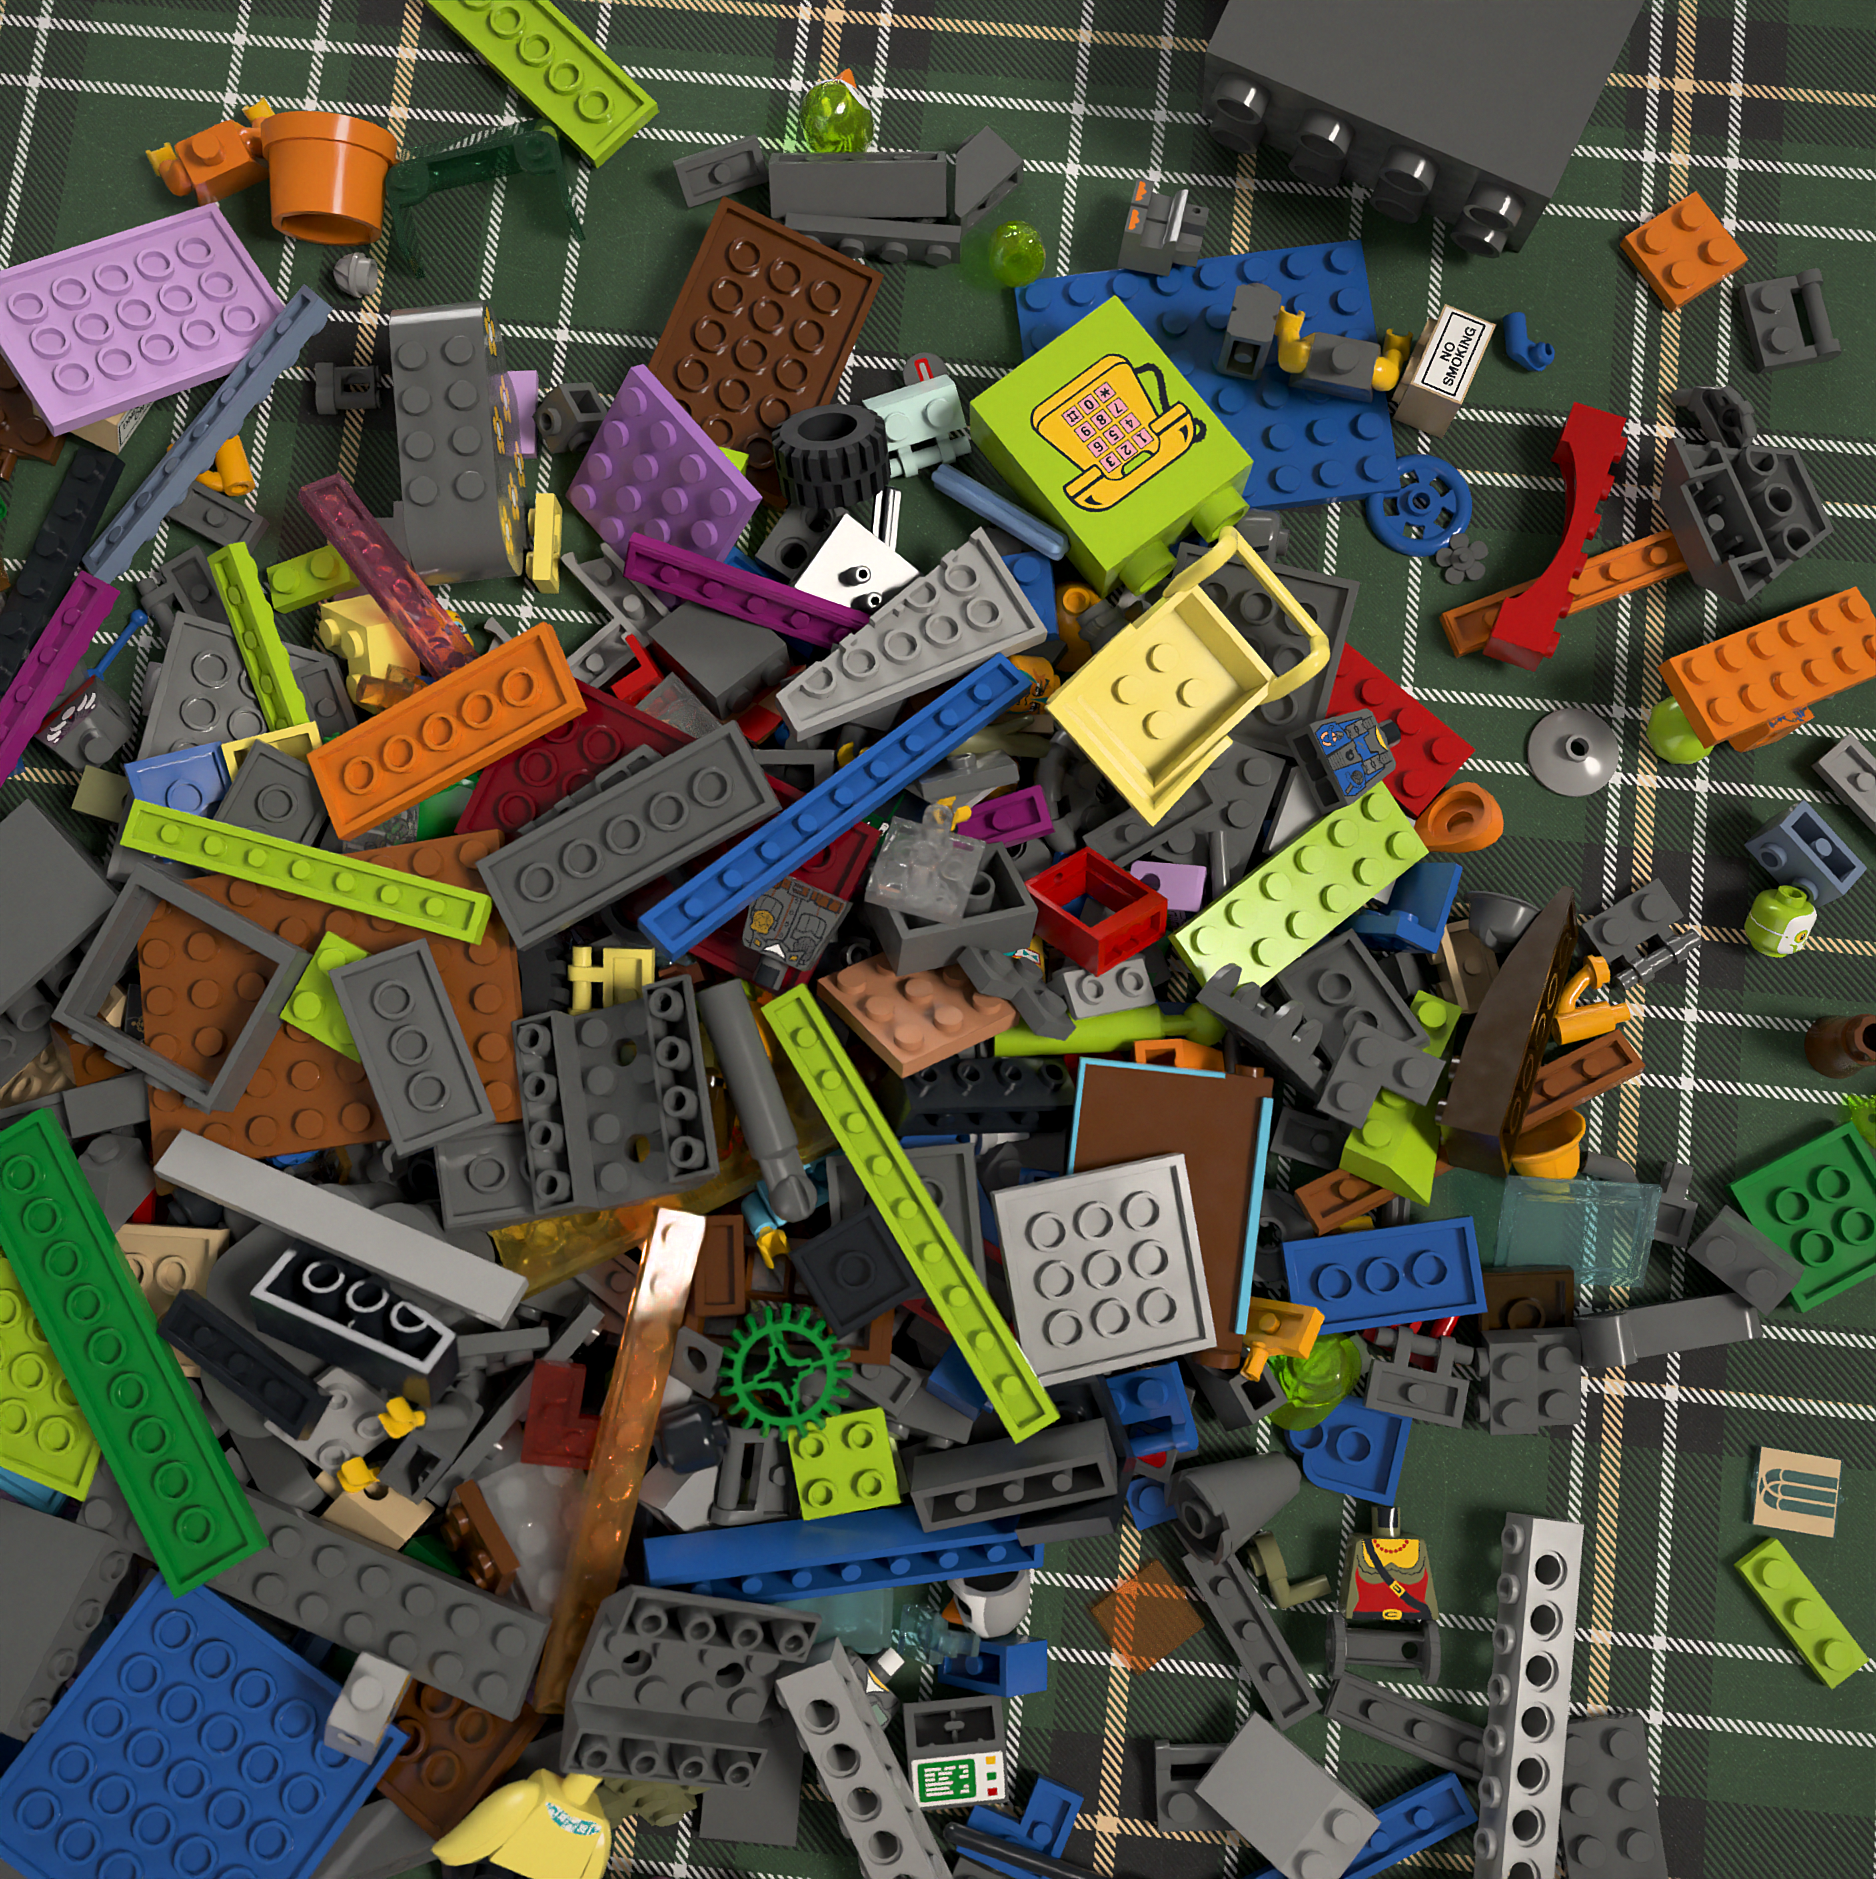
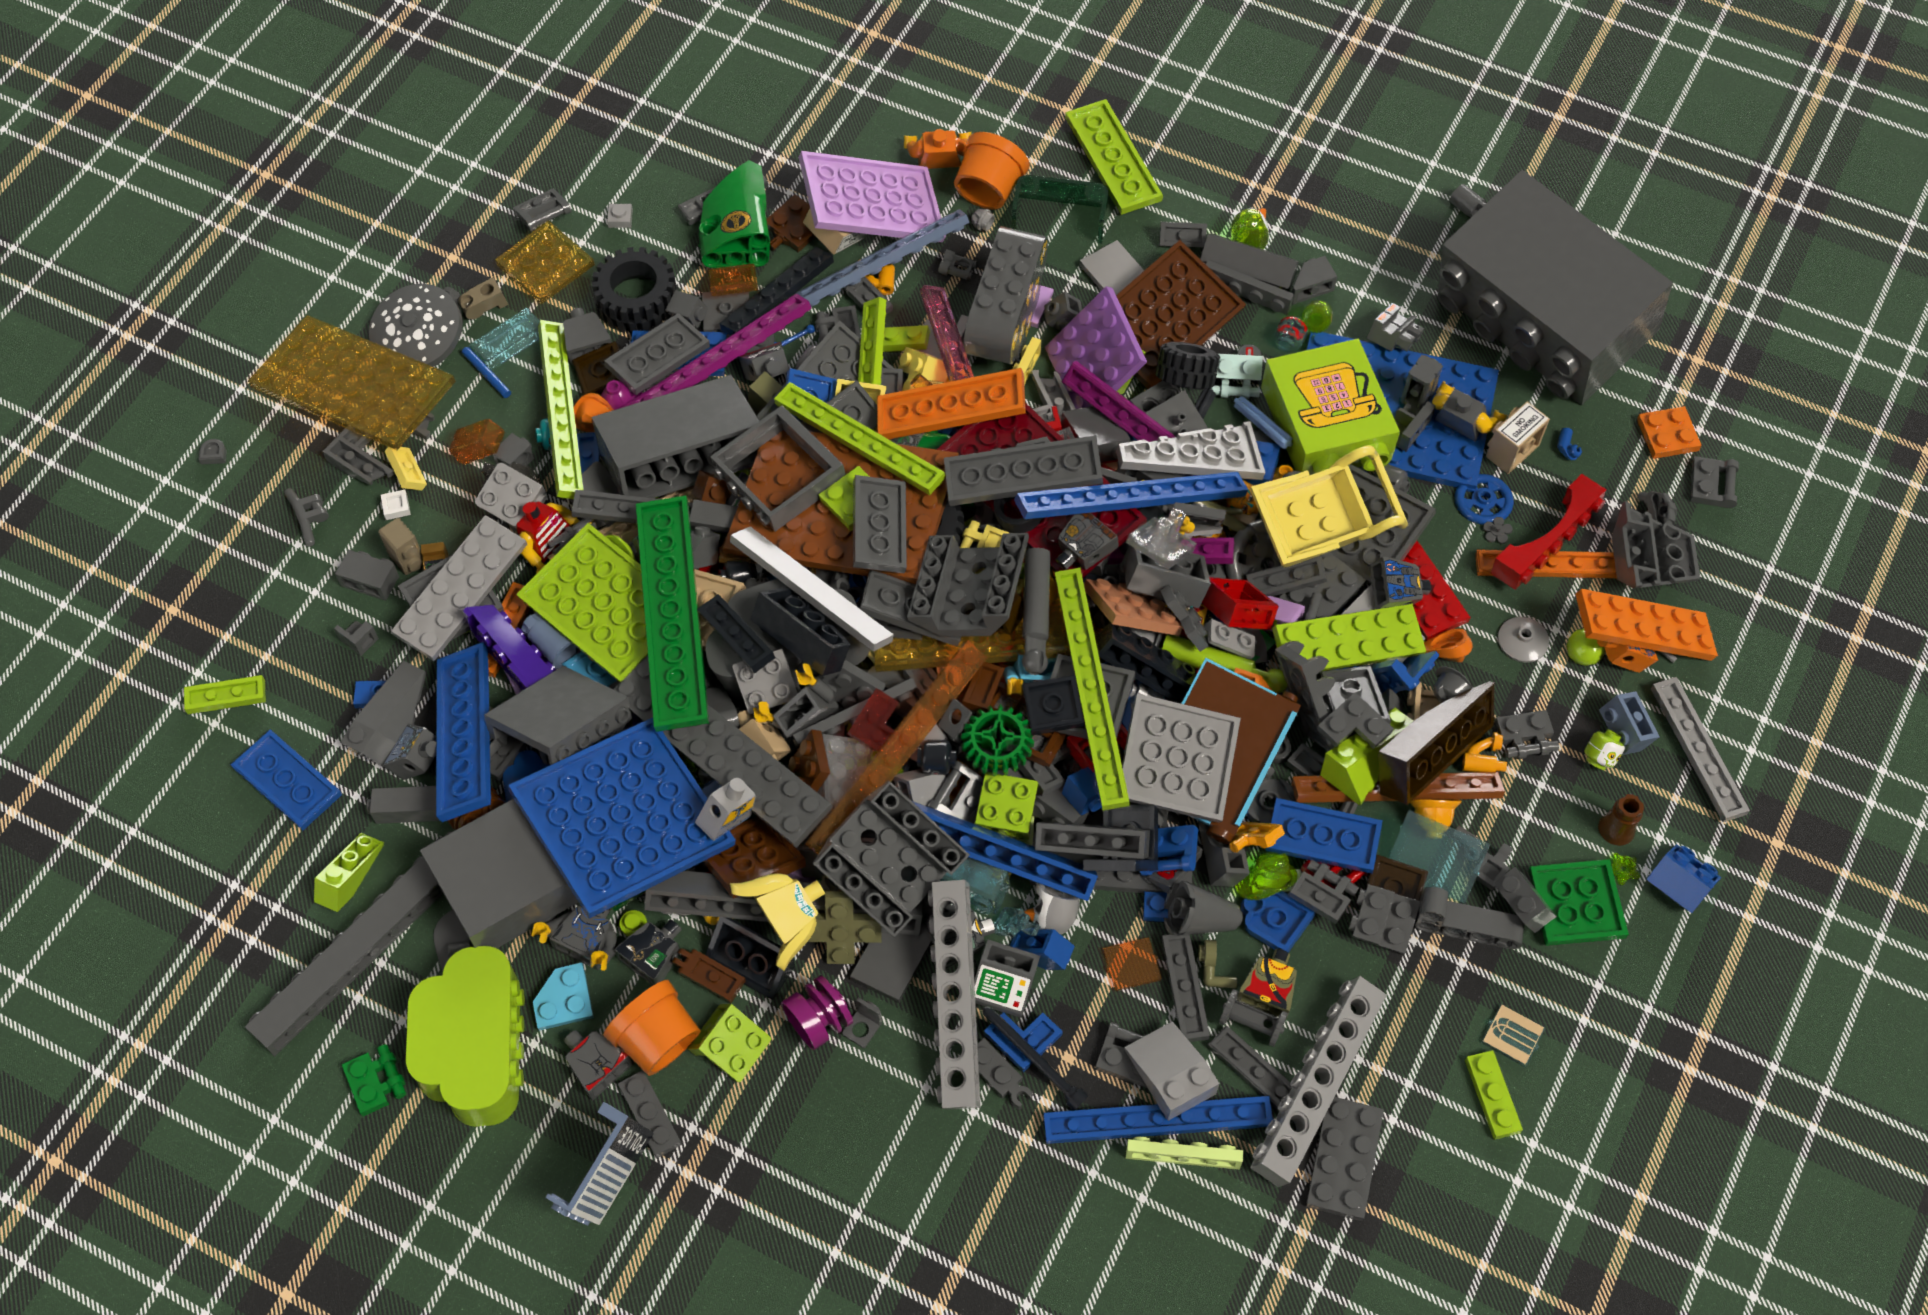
camera: 15 degrees right, 20 degrees down
(625, 291) = (1111, 267): none -> light grey tile
(981, 305) = (1290, 334): none -> clear light blue head
(1252, 411) = (1411, 423): none -> dark grey panel

